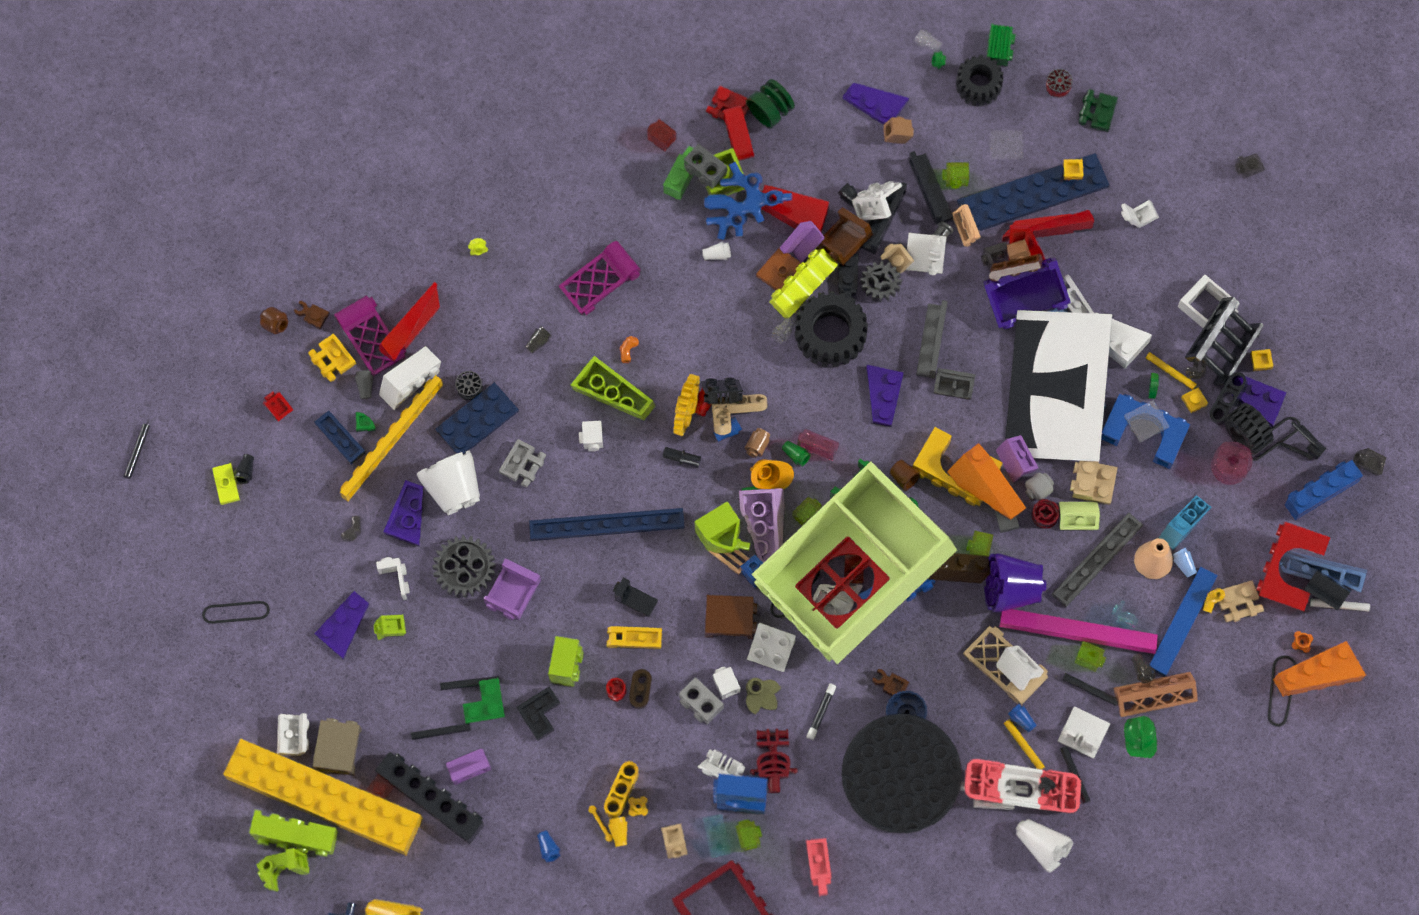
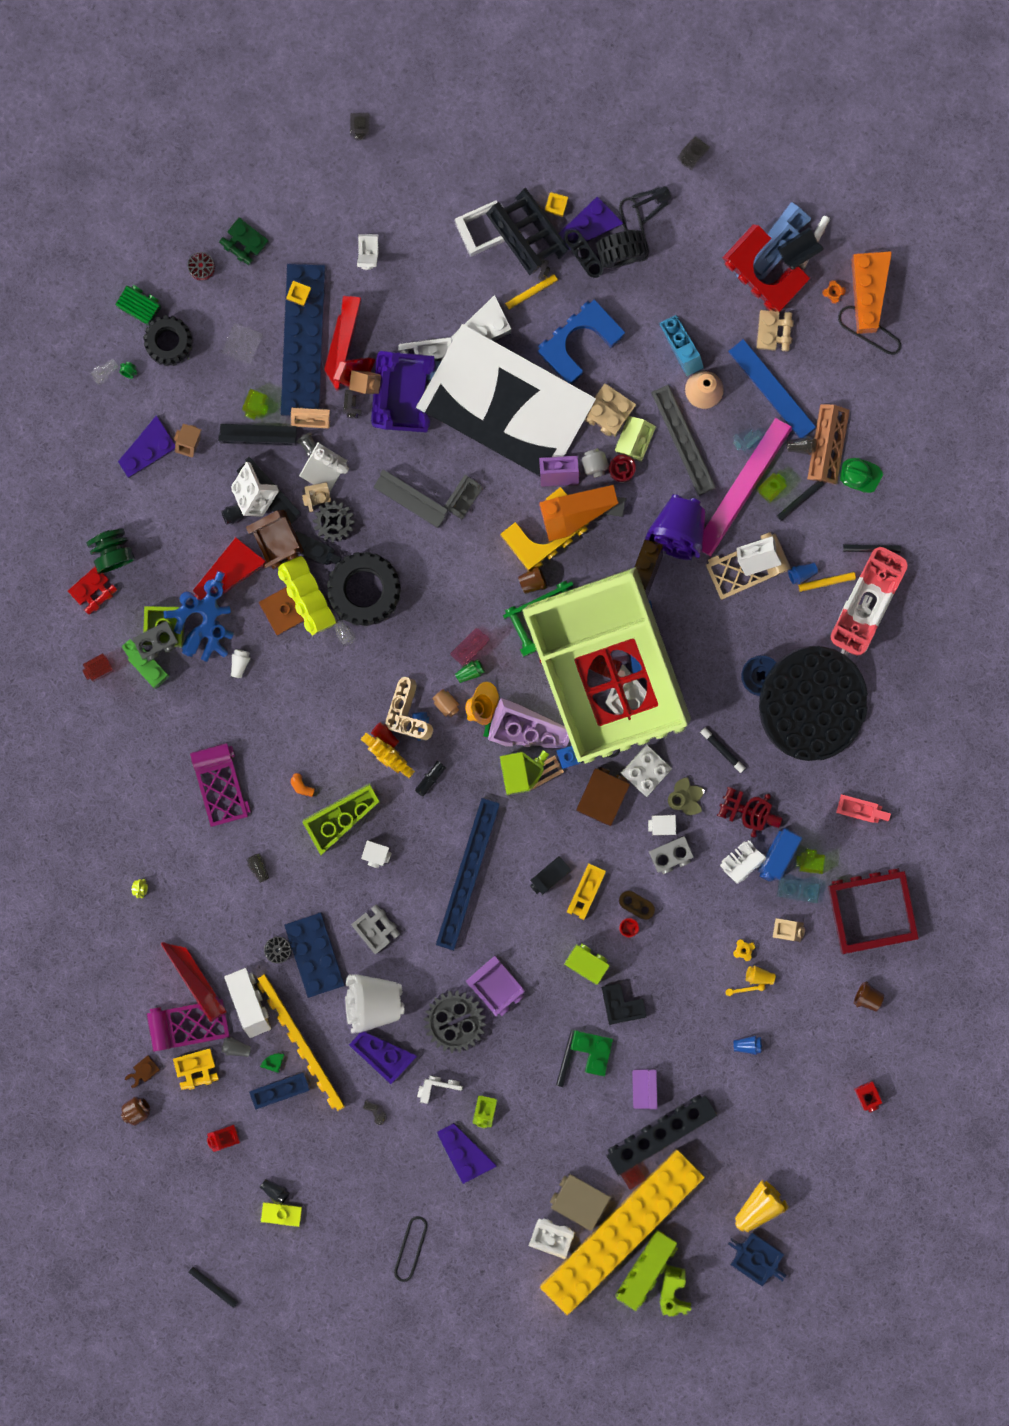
camera: 70 degrees left, 15 degrees up
(440, 731) = (601, 1102): black bar -> none
(621, 780) = (730, 966): yellow beam -> none
(729, 385) = (379, 715): black hinge -> none
(738, 133) = (127, 593): red beam -> none
(803, 240) = (265, 577): medium lavender panel -> none
(806, 510) = (533, 684): clear neon green brick -> none
(884, 393) = (444, 565): dark purple wing -> none
(891, 684) = (726, 675): reddish brown plate -> none
(980, 543) = (629, 541): clear neon green brick -> none
(1015, 267) = (379, 392): reddish brown plate -> none
(1044, 843) = (923, 604): white cone -> none
(1046, 784) = (876, 579): black piece -> none
(1083, 732) = (837, 523): white hinge -> none
(1146, 421) = (575, 337): clear piece -> none
(1153, 386) = (539, 314): green tile -> none
(1185, 562) = (717, 363): light blue cone -> none
(1194, 400) = (568, 283): yellow plate -> none
(1212, 598) = (762, 354): yellow arm -> none
(1241, 459) = (643, 267): clear pink brick -> none
(1323, 490) = (704, 209): blue brick -> none

